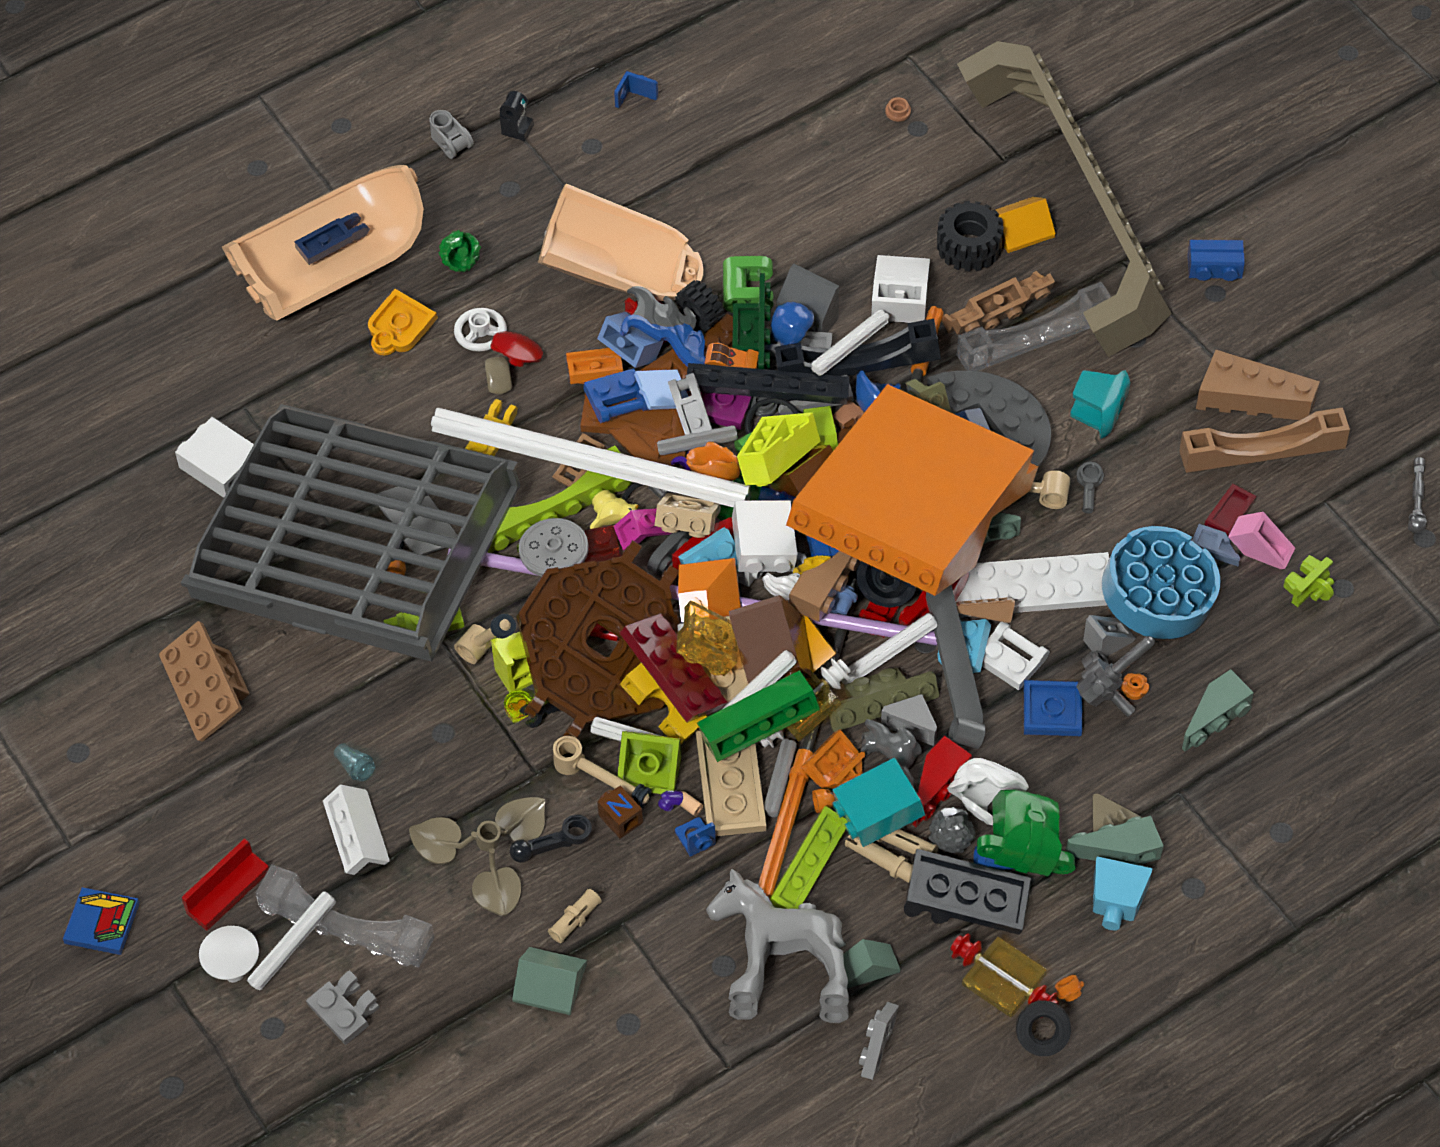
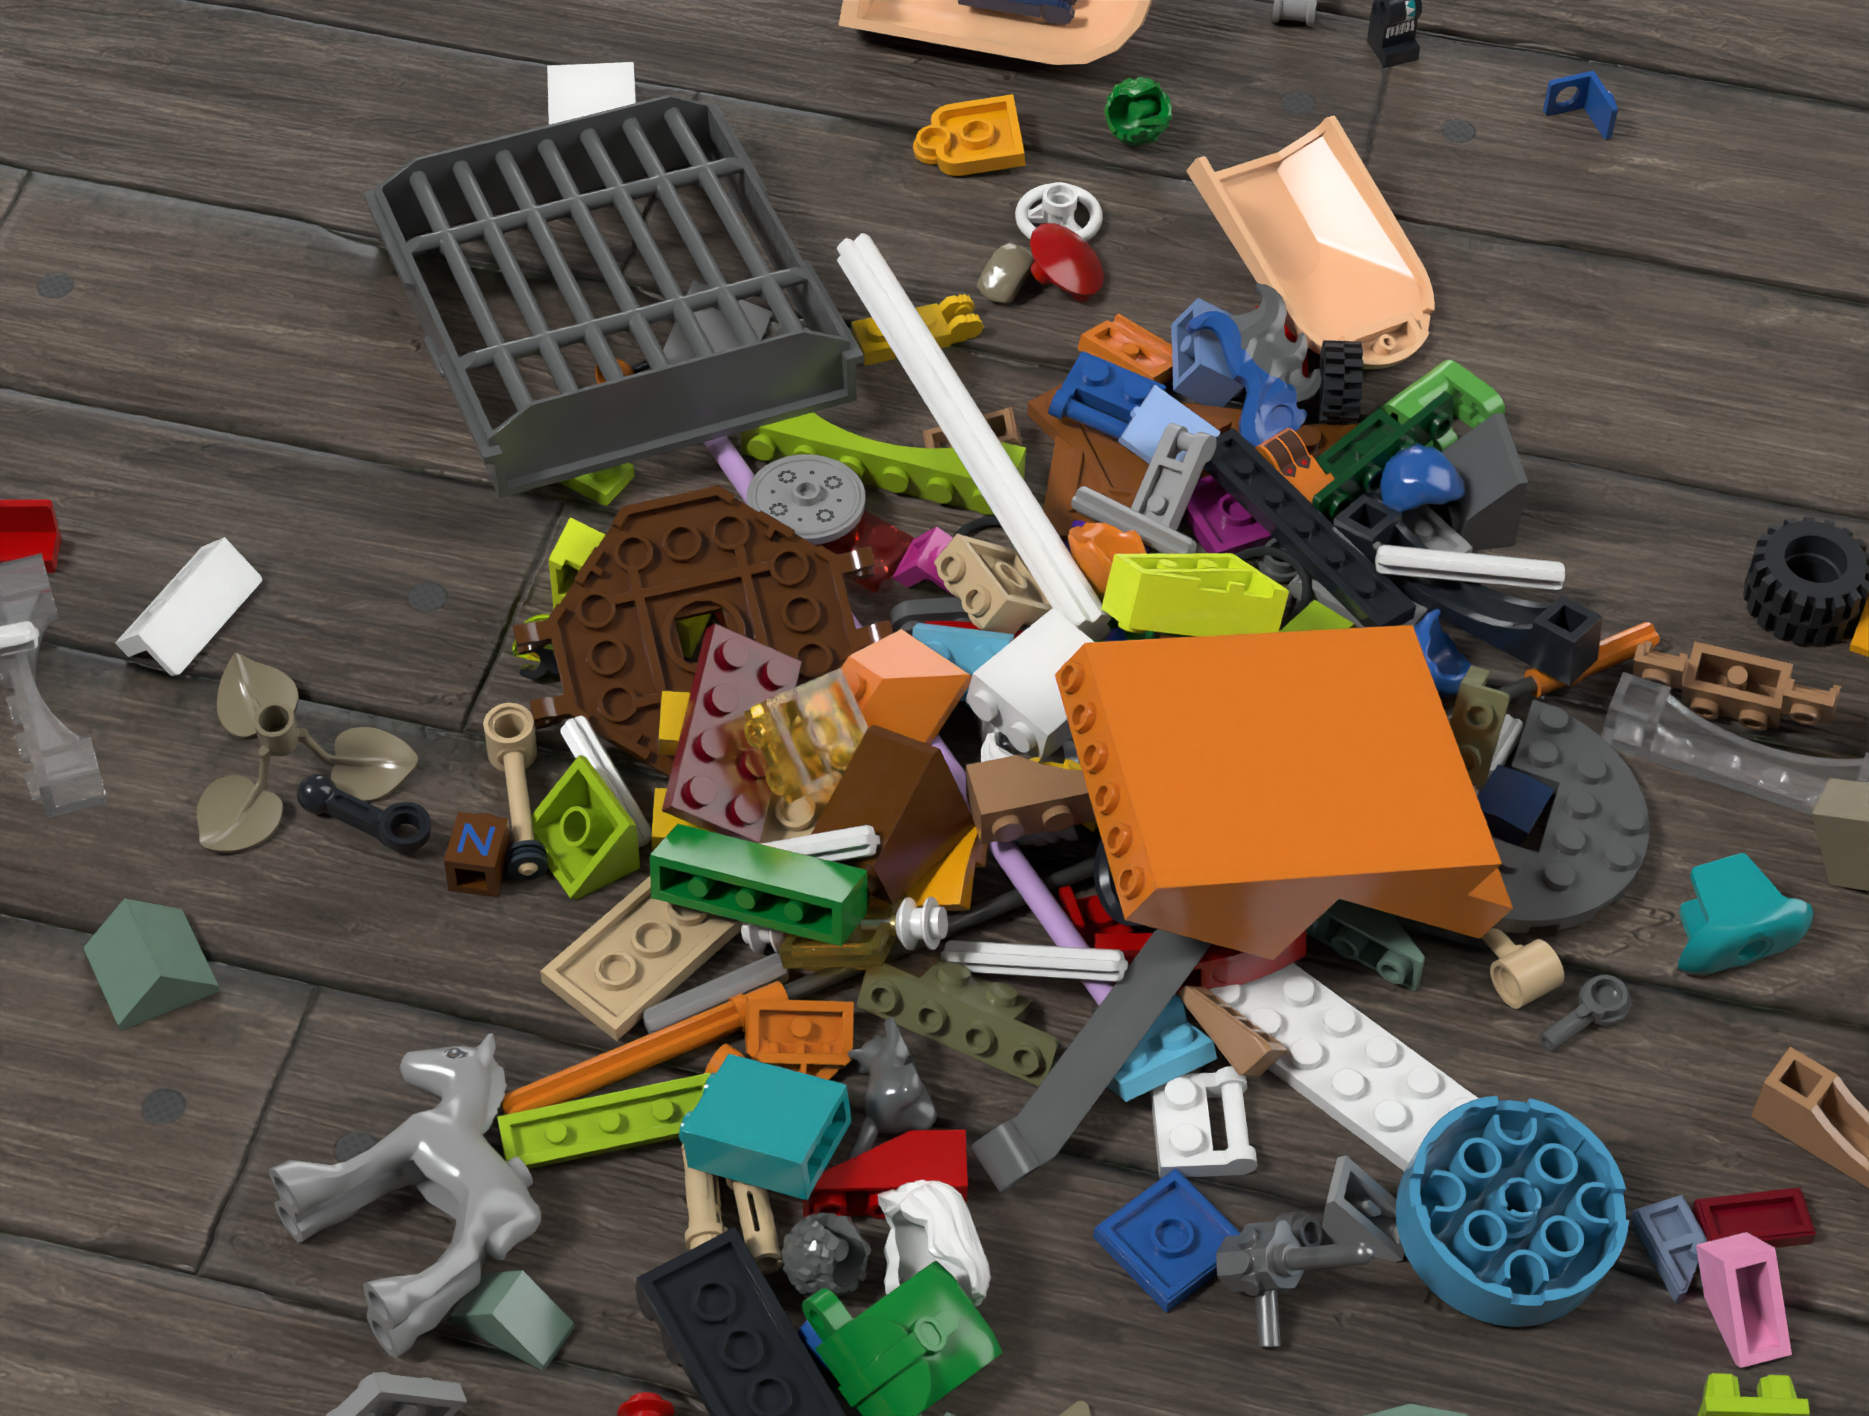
camera: 45 degrees right, 5 degrees down
(204, 680) = (268, 313): medium nougat bracket -> none
(357, 764) = (286, 539): clear light blue cone -> none
(478, 640) = (579, 503): tan piece -> none
(574, 916) = (236, 922): tan pin -> none
(609, 509) = (935, 507): light yellow animal -> none
(682, 799) = (570, 907): arm -> none
(699, 839) = (522, 966): blue bracket -> none
(844, 601) = (1054, 851): medium blue hose -> none
(901, 288) = (1633, 568): white slope -> none
(913, 716) = (966, 1074): light grey slope -> none
(1134, 692) = (1317, 1329): orange plate -> none

